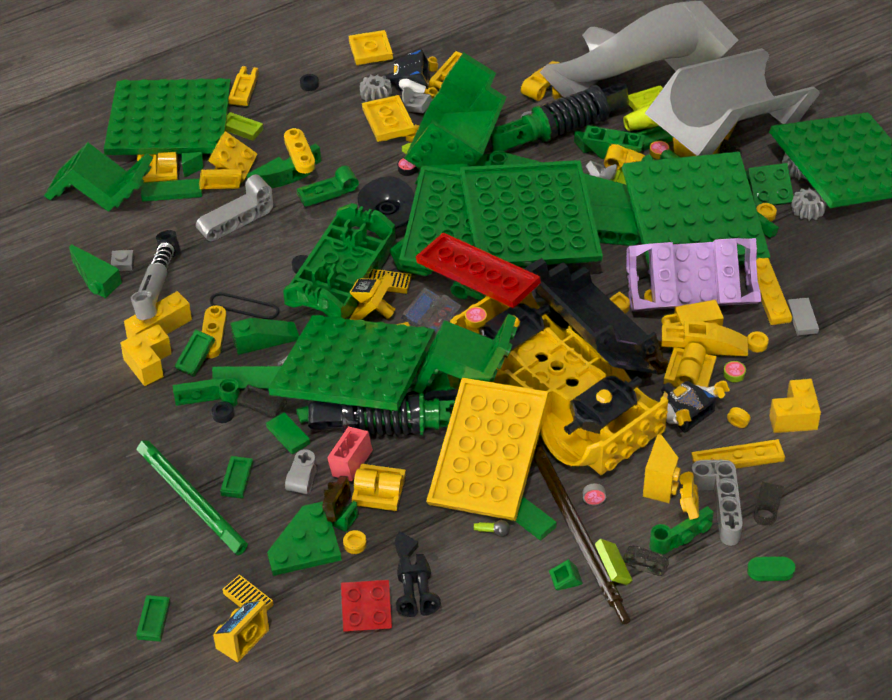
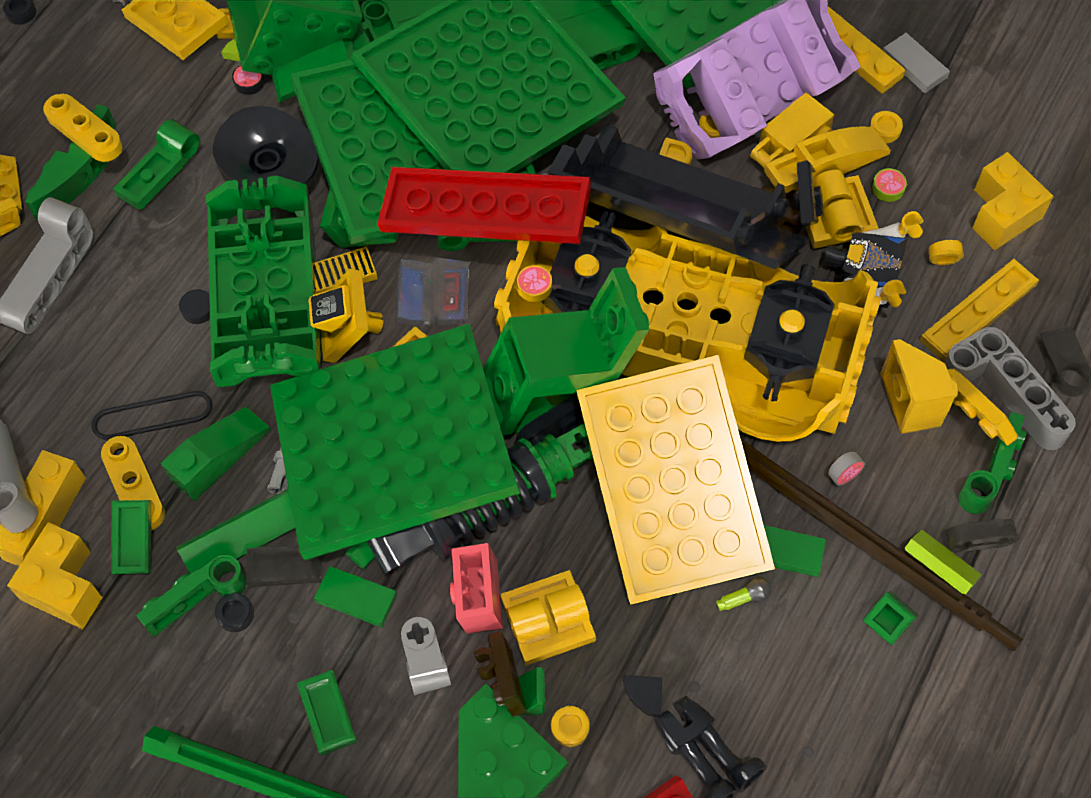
camera: 30 degrees left, 15 degrees up
(673, 349) = (809, 197): none -> black plate

